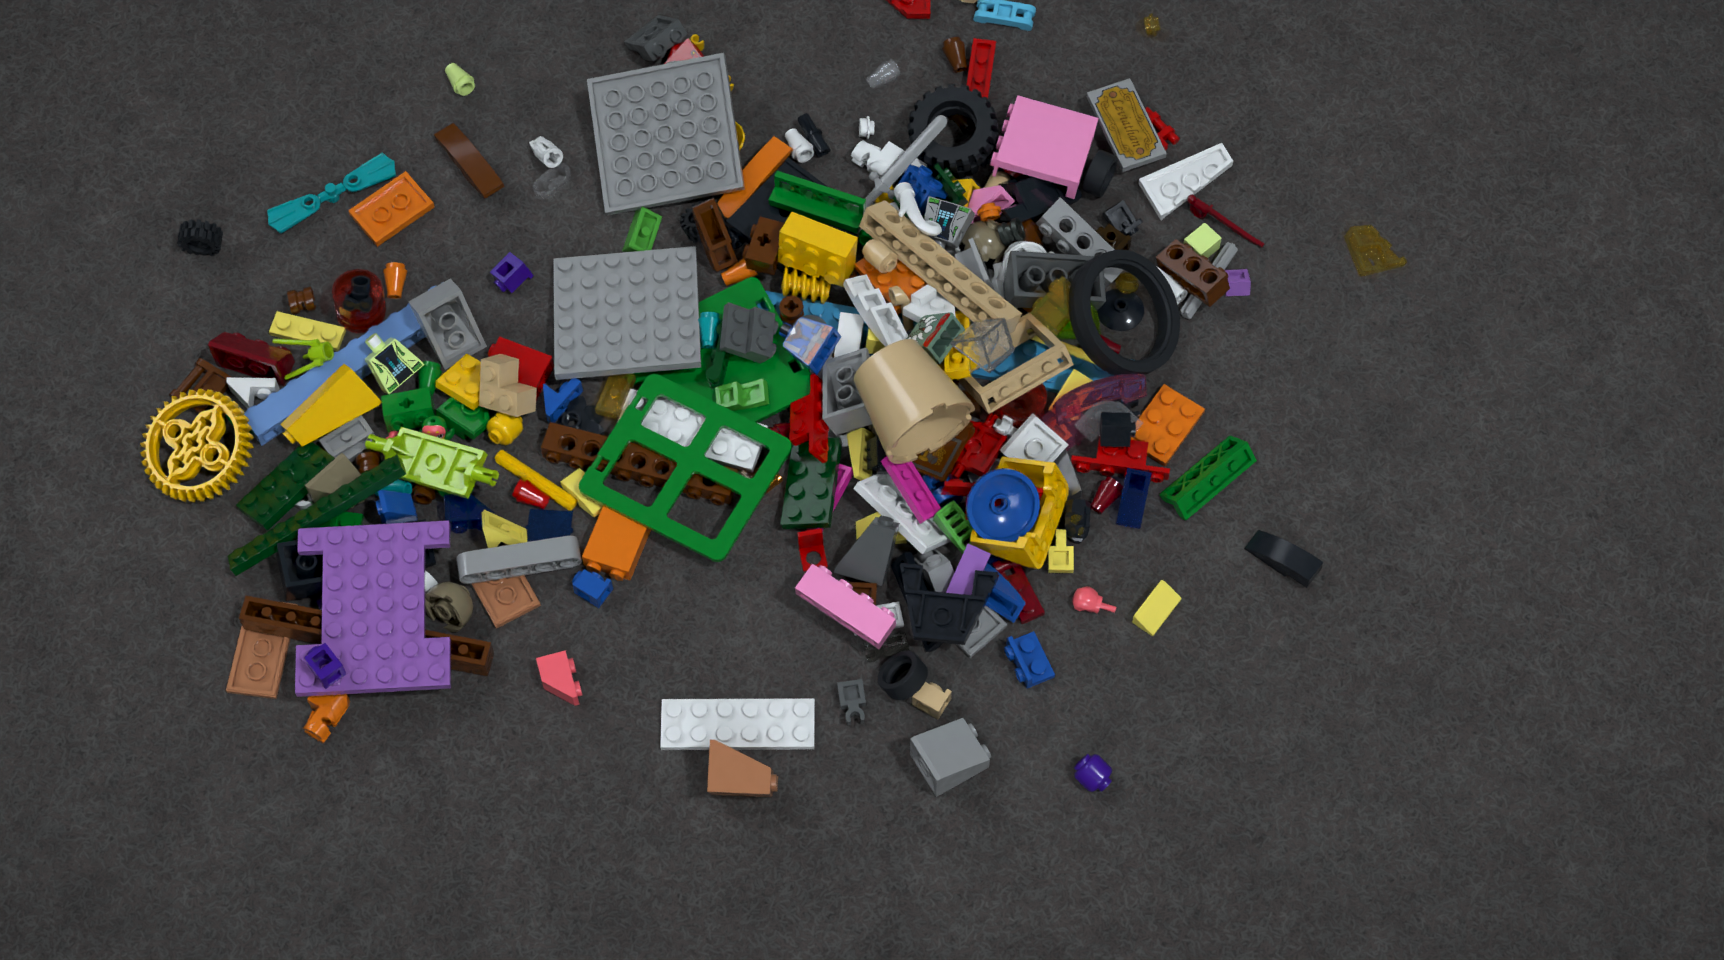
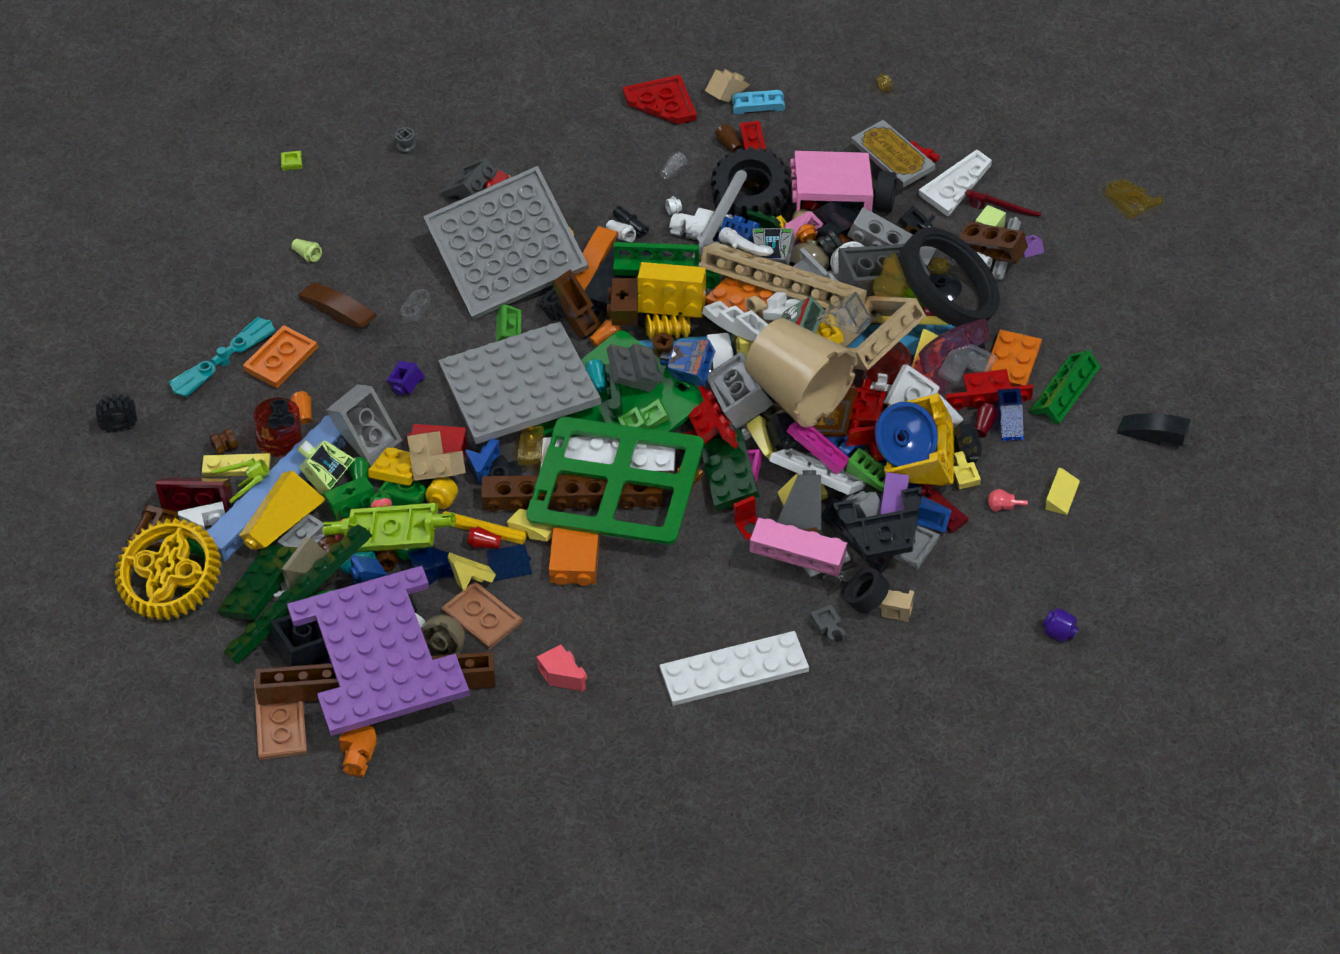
camera: 15 degrees left, 15 degrees down
(329, 673) = (352, 696): dark purple brick -> none
(518, 559) = (492, 586): light grey beam -> none
(546, 149) = (404, 283): white hinge -> none
(592, 587) = (565, 594): blue brick -> none
(738, 774) = (753, 697): nougat slope -> none
(880, 256) = (727, 281): tan brick -> none
(949, 755) = (929, 642): light grey slope -> none
(1029, 659) = (969, 556): blue bracket -> none
(1116, 429) = (977, 362): black brick -> none

